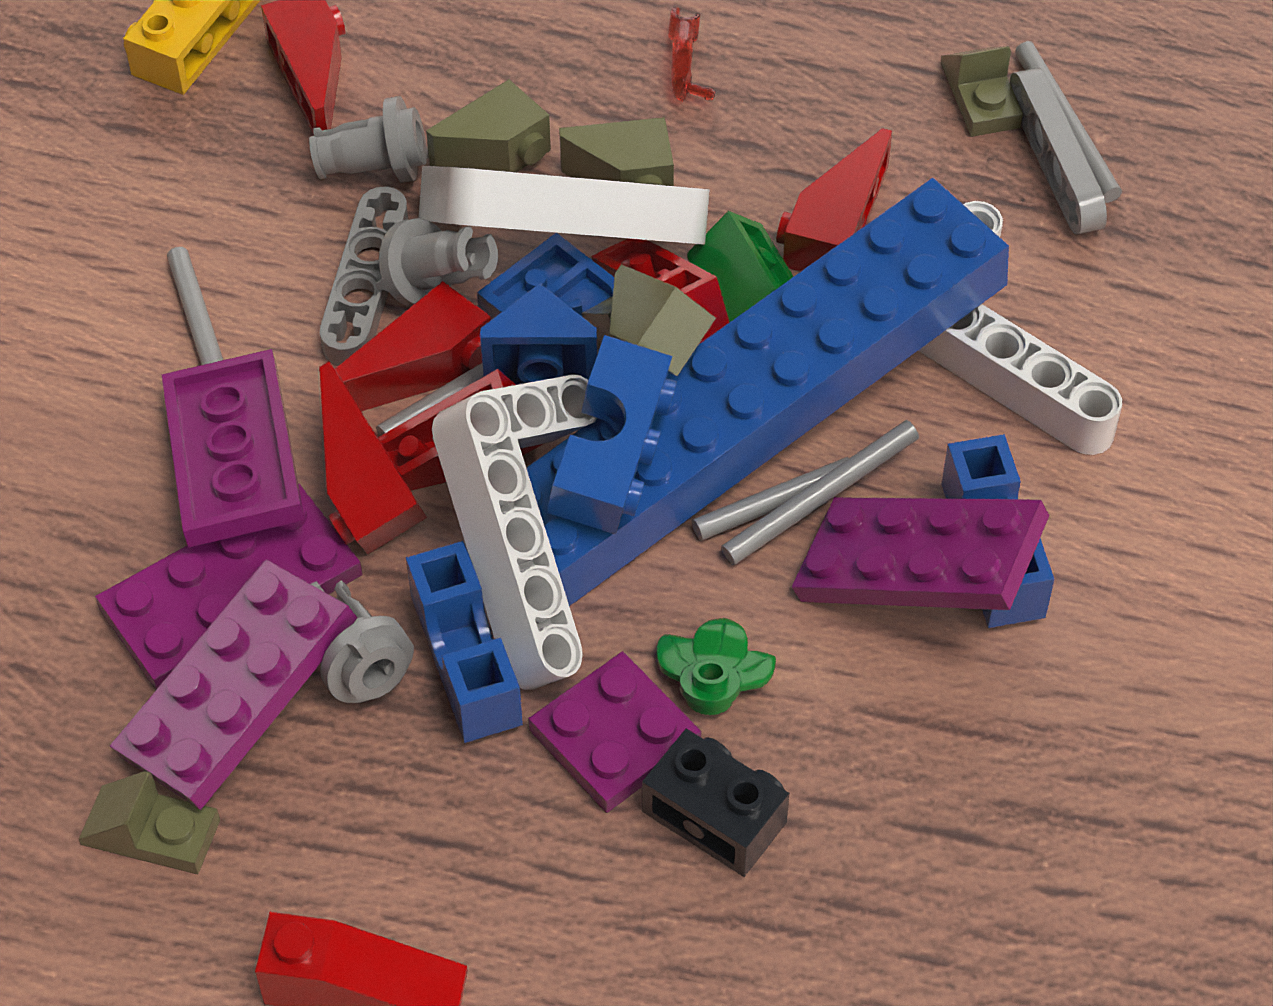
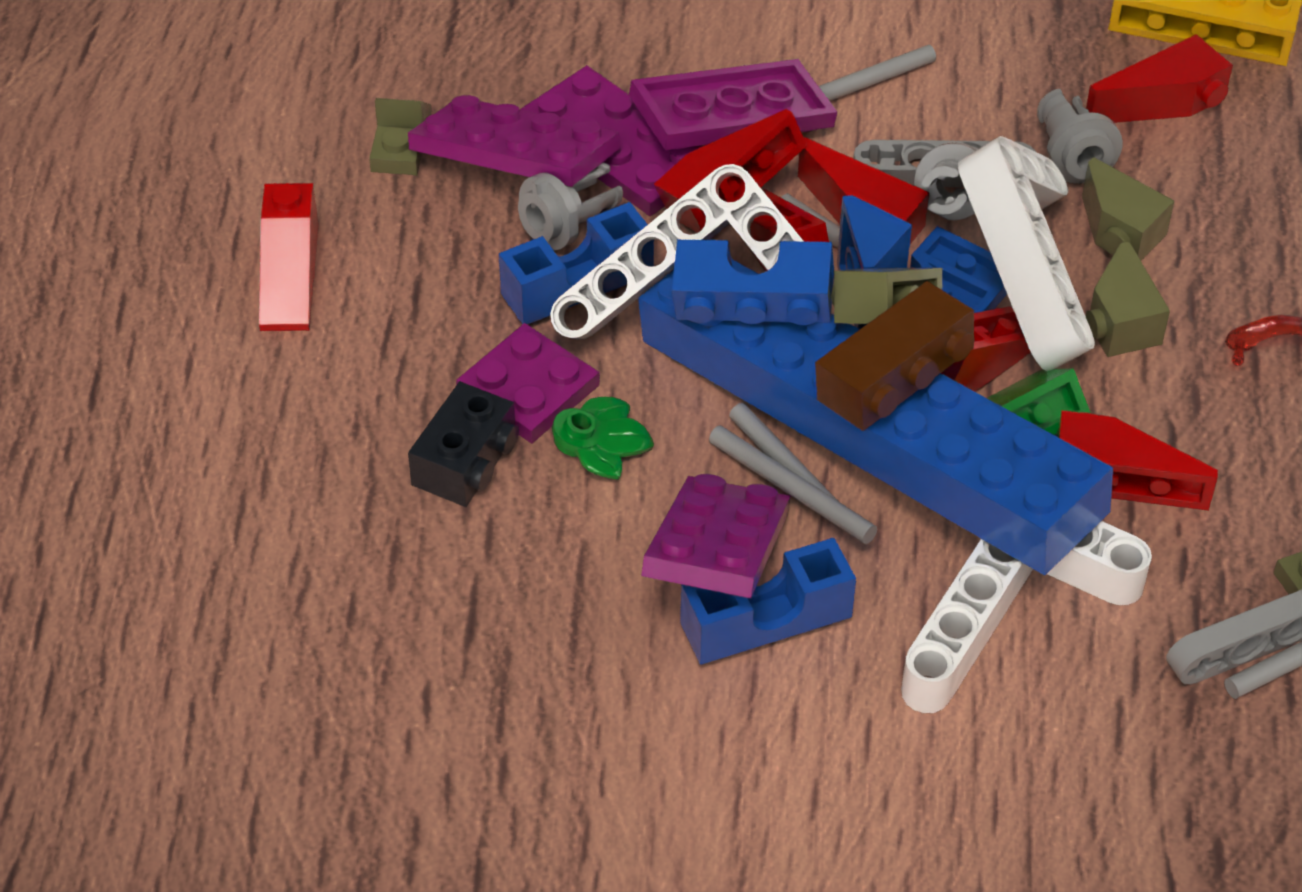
camera: 80 degrees right, 5 degrees down
(763, 319) = (895, 355): none -> reddish brown brick

